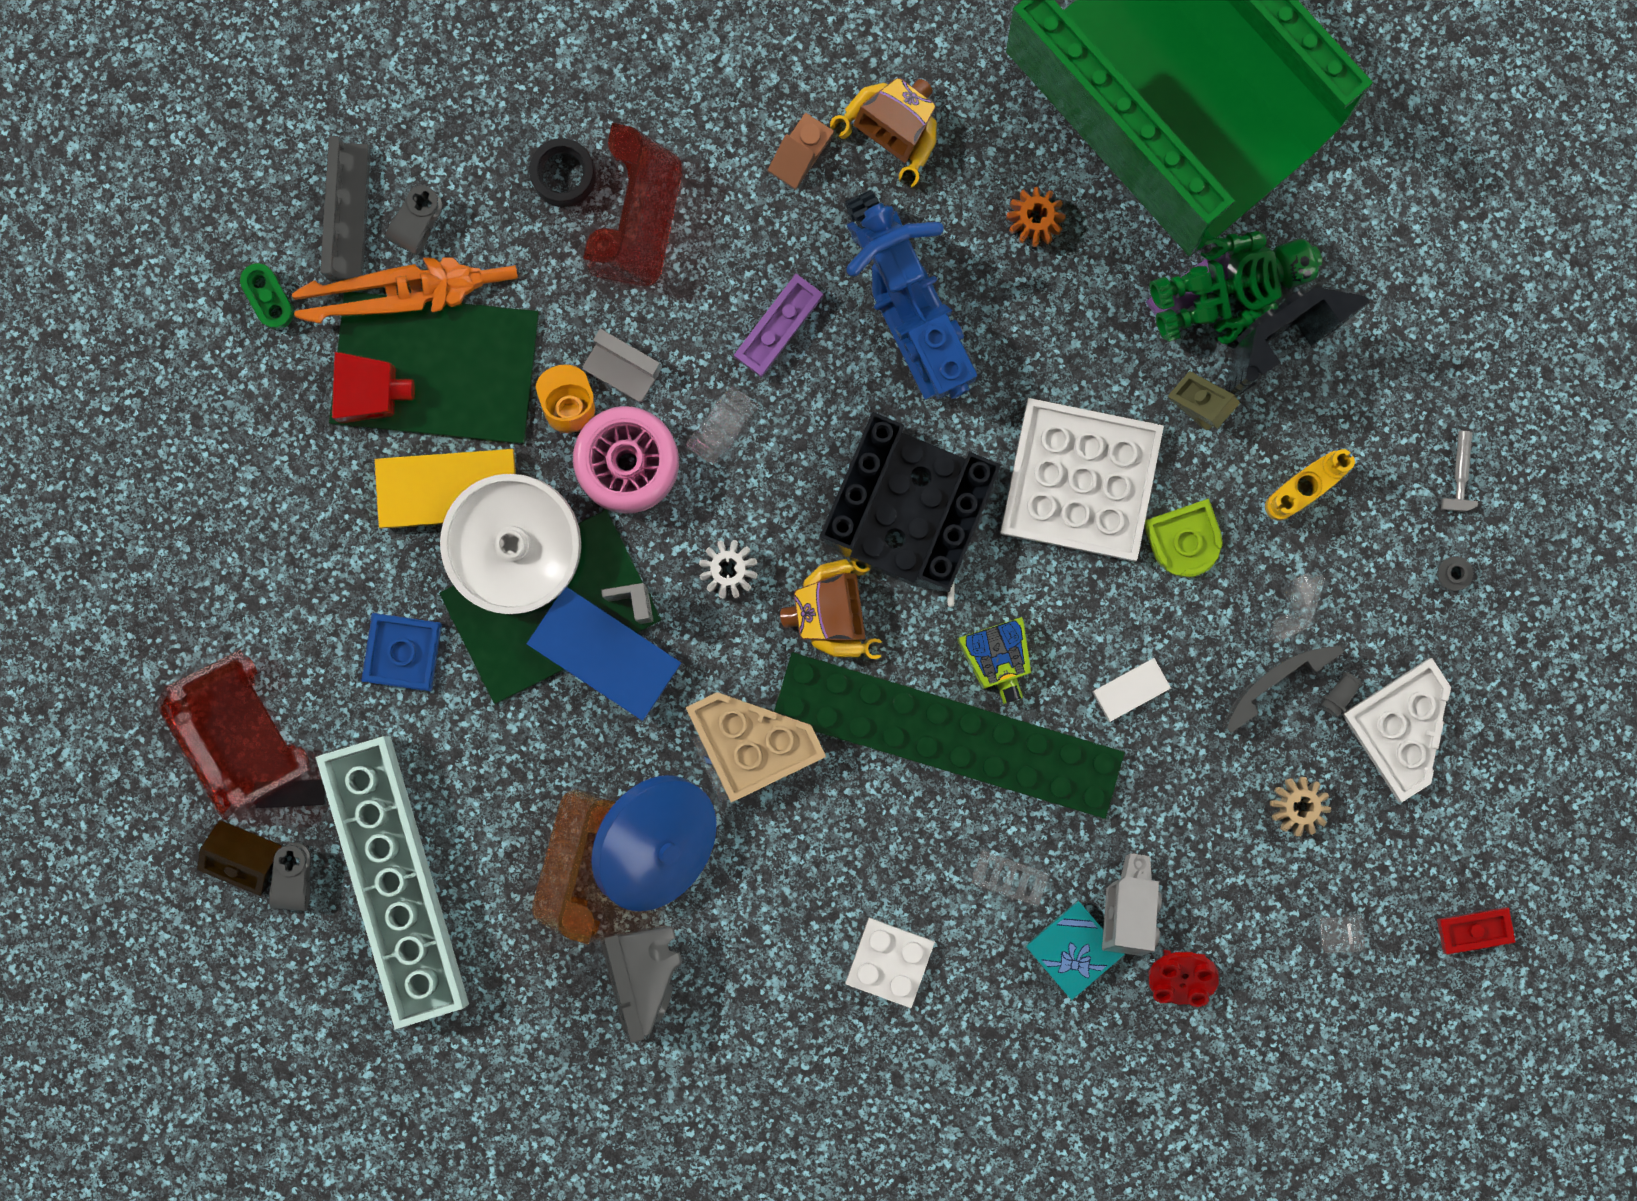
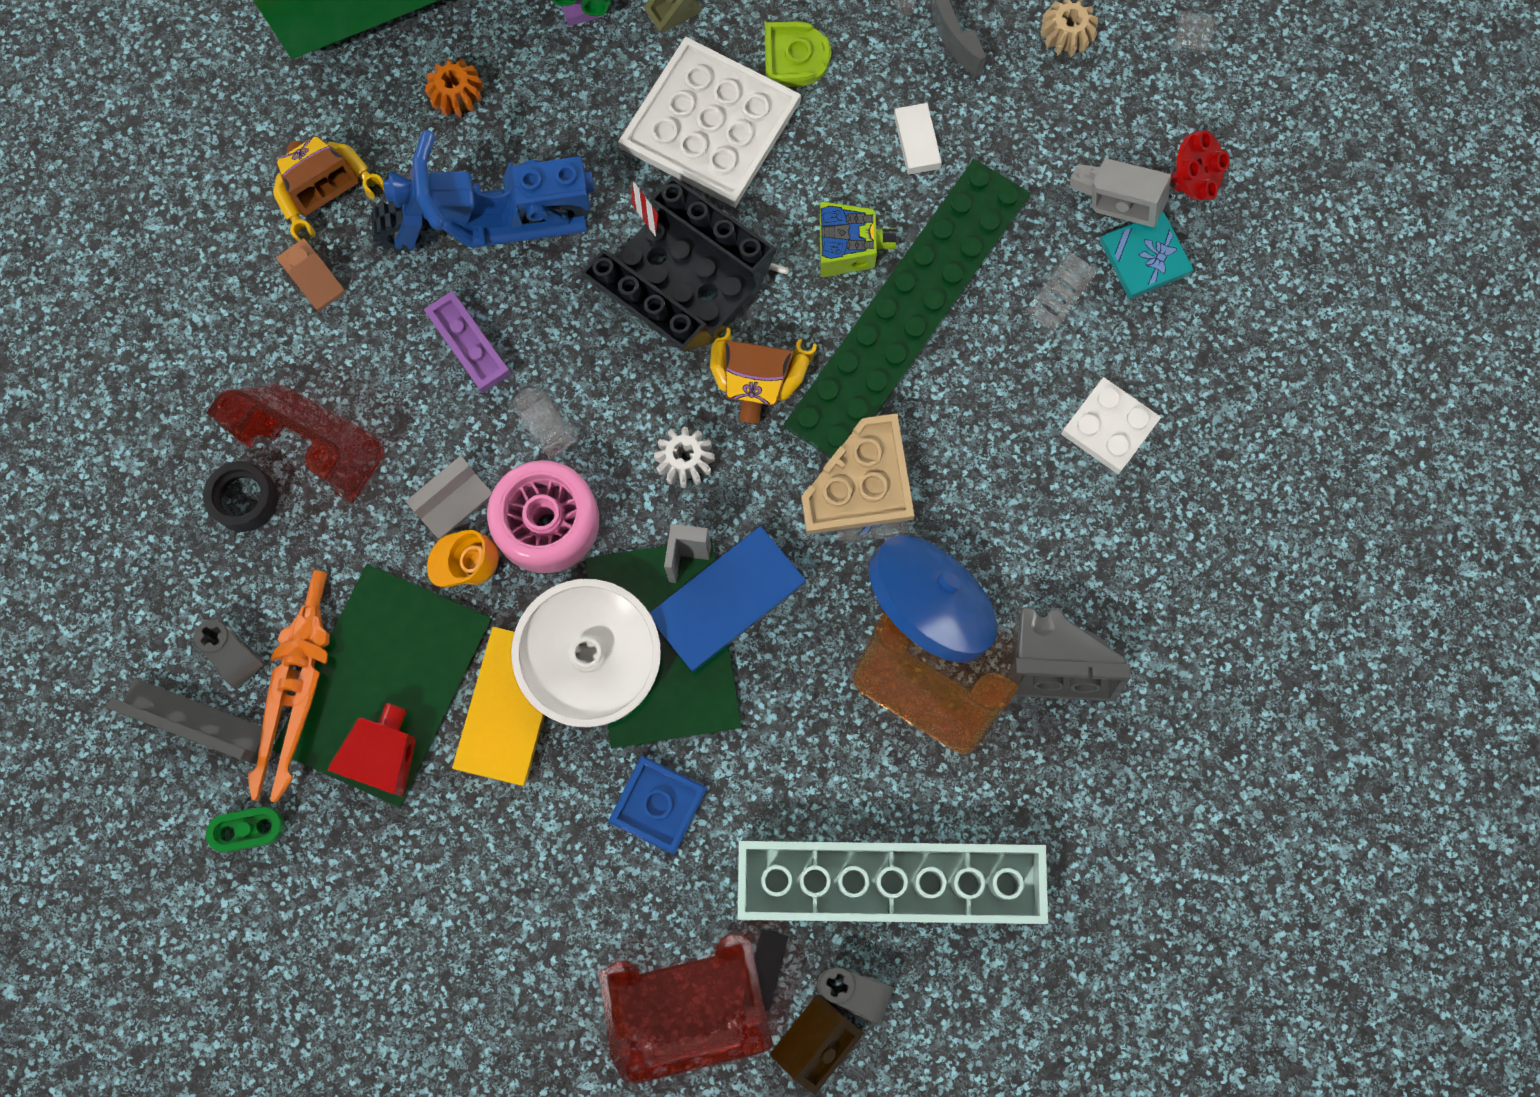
camera: 70 degrees left, 10 degrees down
(955, 456) = (644, 208): none -> sticker

